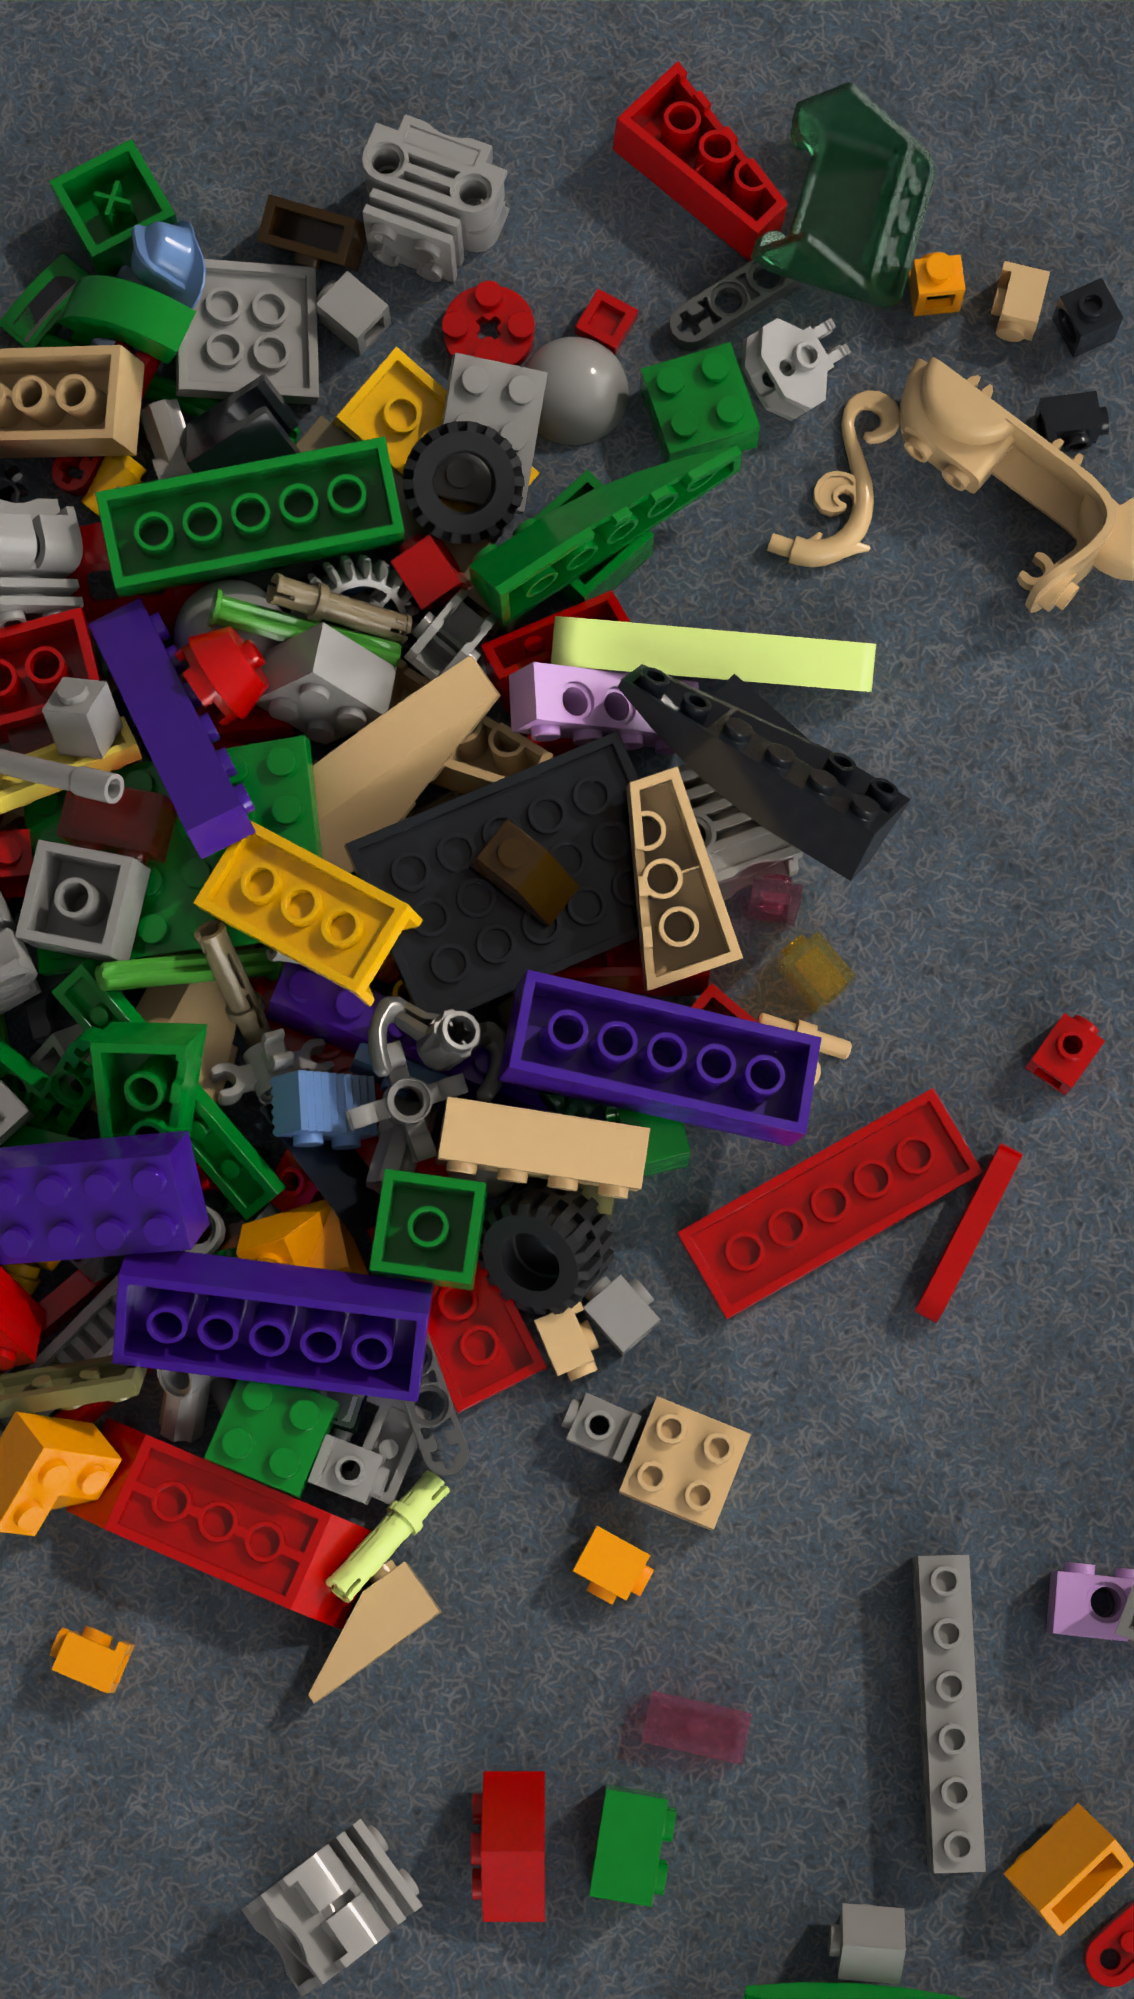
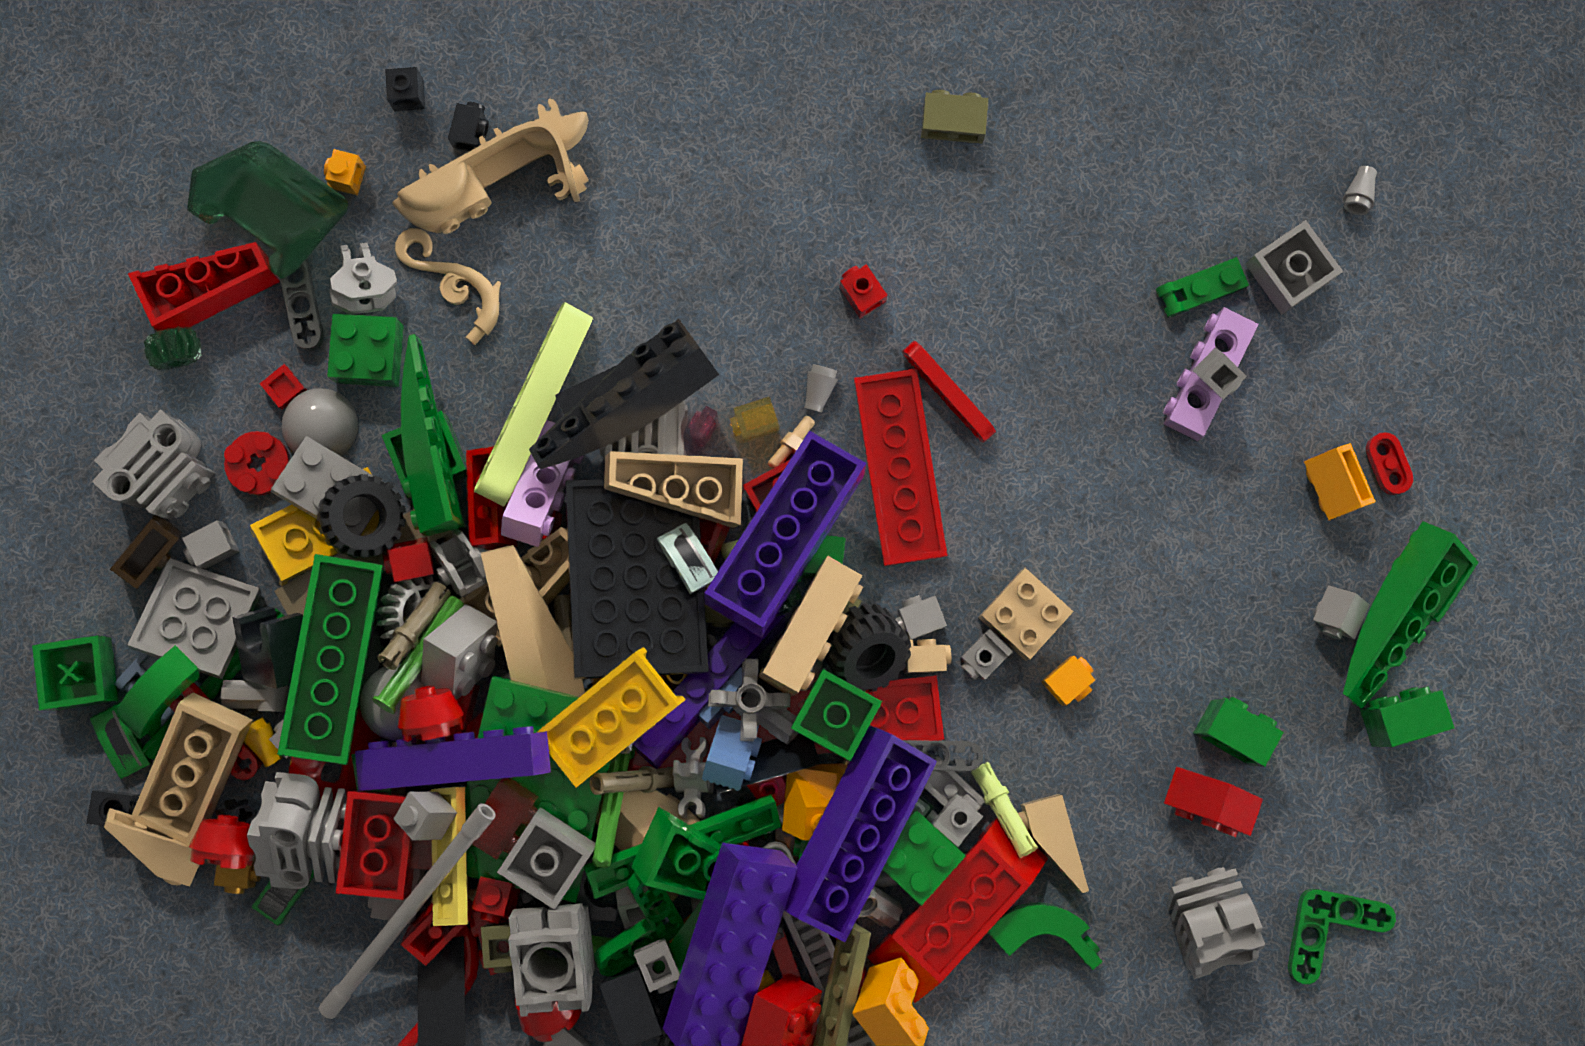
camera: 75 degrees left, 5 degrees up
(90, 1657) = (1010, 1019): light orange brick -> none
(169, 260) = (130, 650): medium blue piece -> none
(252, 1654) = (1044, 918): none -> green arch
(440, 1040) = (723, 664): dark grey piece -> none
(525, 872) = (635, 572): dark brown slope -> none
(574, 937) = (688, 557): none -> light aqua slope
(600, 159) = (172, 348): none -> clear green gear
(696, 1727) = (1181, 666): clear pink plate -> none
(900, 1045) = (819, 387): none -> light grey cone
(948, 1714) = (1226, 515): light grey brick -> none
(1019, 301) = (376, 126): tan brick -> none

